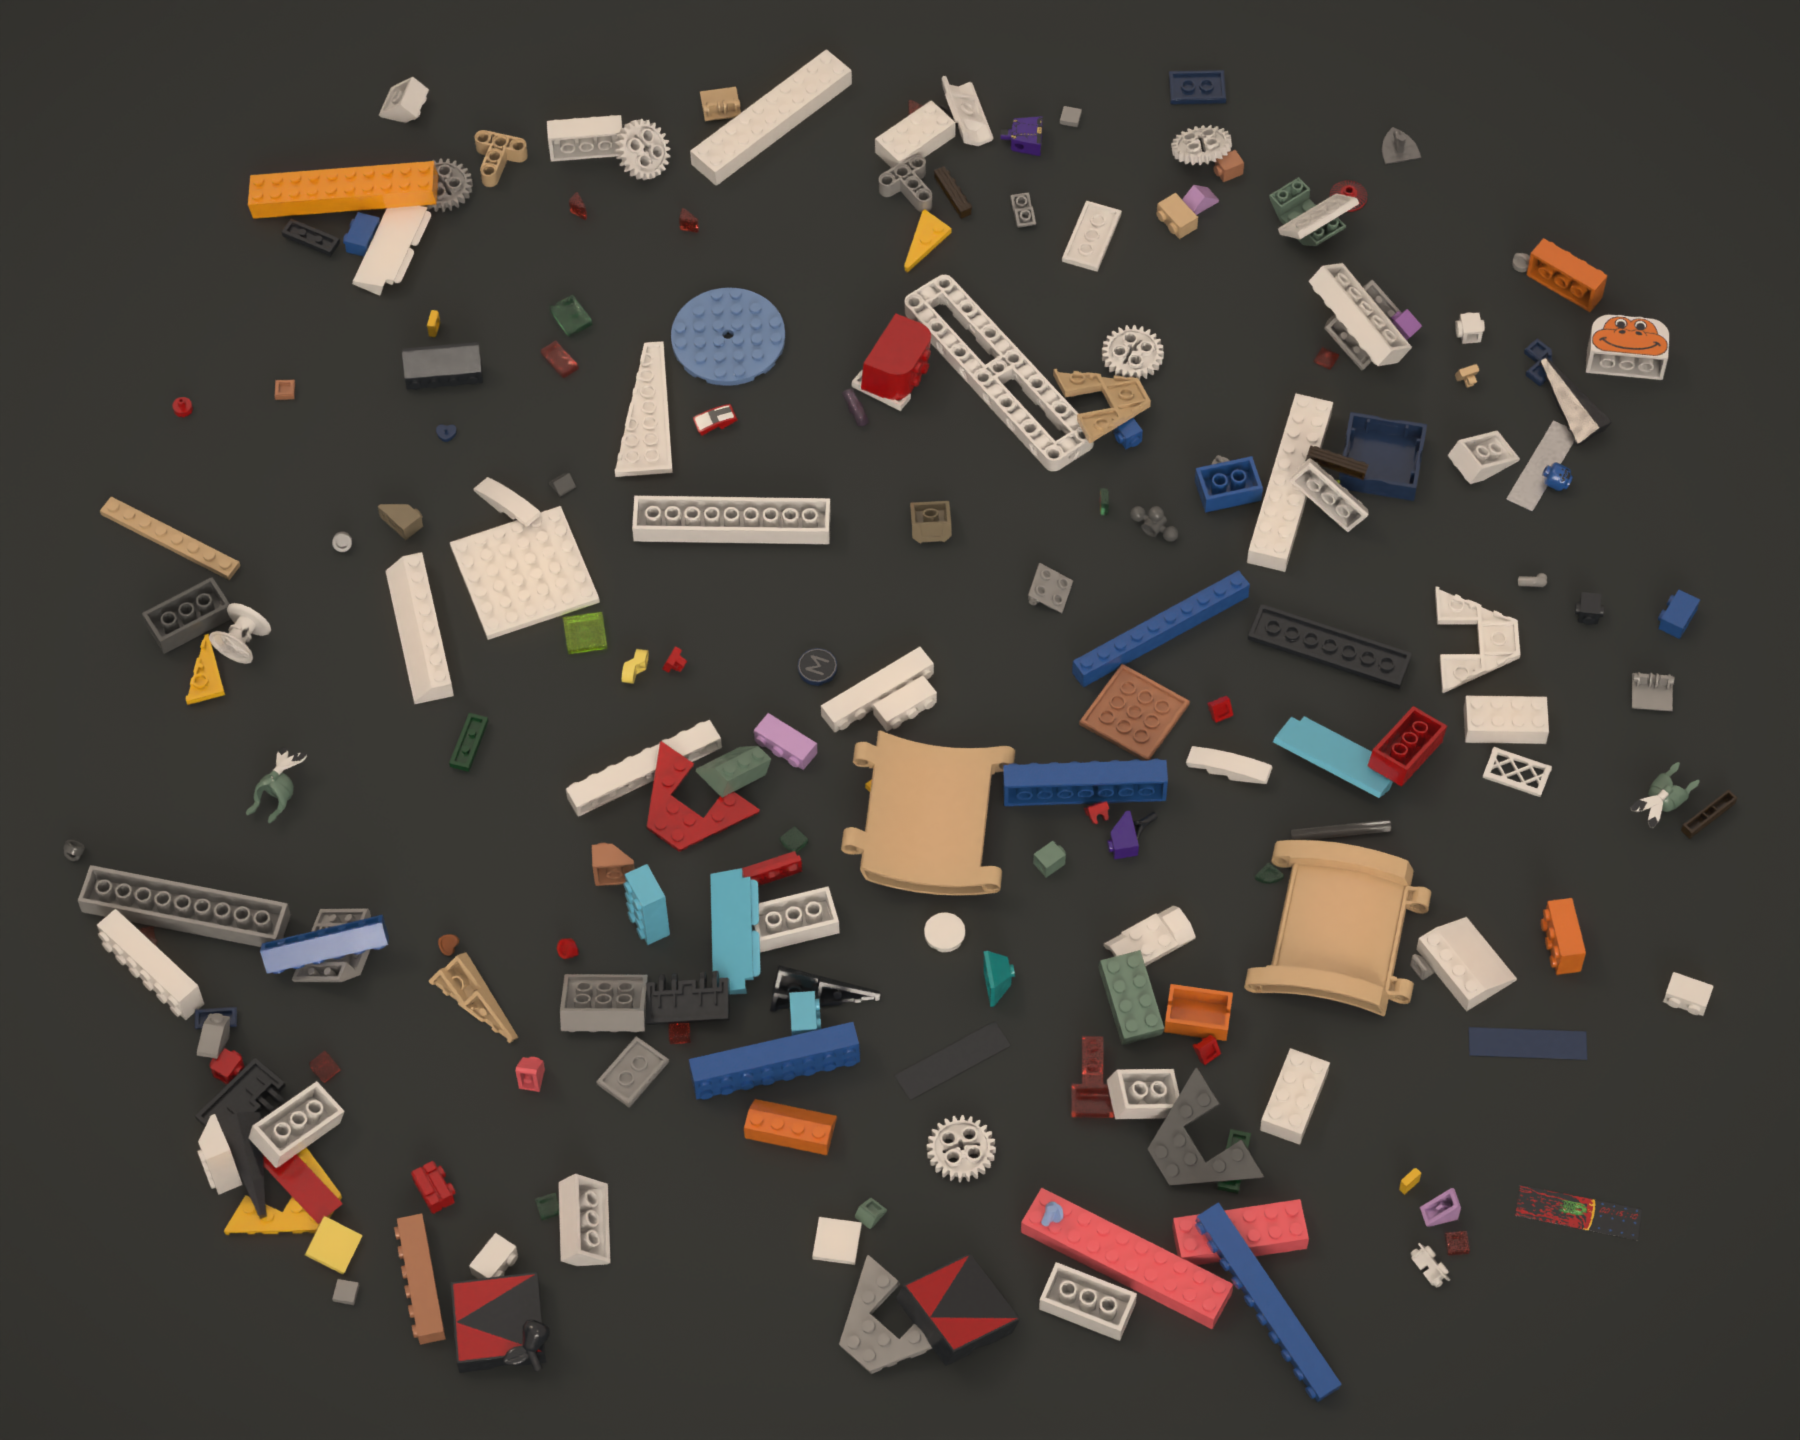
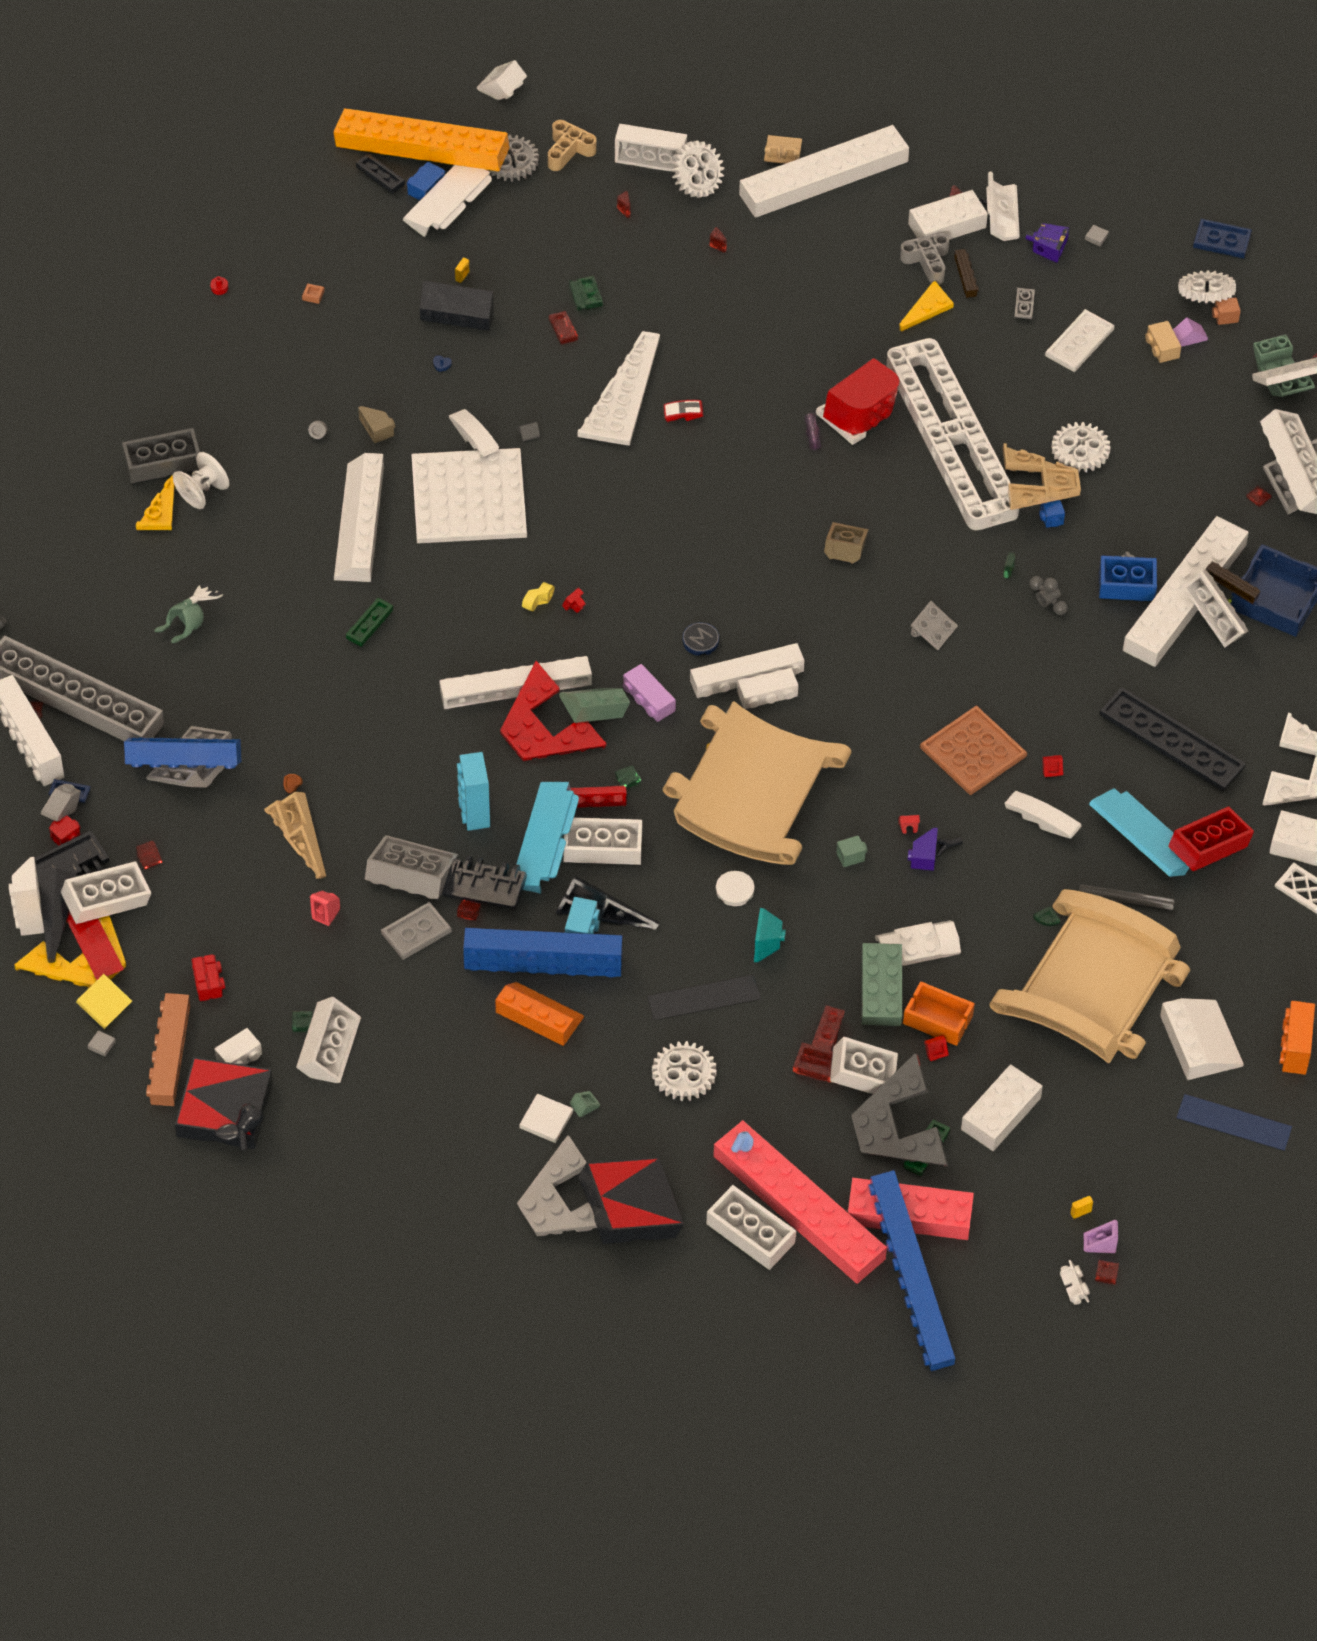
camera: 15 degrees right, 5 degrees down
(170, 538) = (170, 390): tan plate -> none
(567, 948) = (394, 813): red tile -> none
(585, 632) = (504, 558): clear neon green tile -> none
(610, 864) = (450, 748): nougat slope -> none
(731, 519) = (667, 496): white brick -> none
(747, 316) = (745, 348): medium blue plate -> none
(1085, 782) = (905, 794): blue brick -> none
(1160, 628) = (1022, 684): blue brick -> none
(1421, 967) = (1158, 1030): light grey slope -> none
(1578, 1212) = (1229, 1277): black sticker -> none

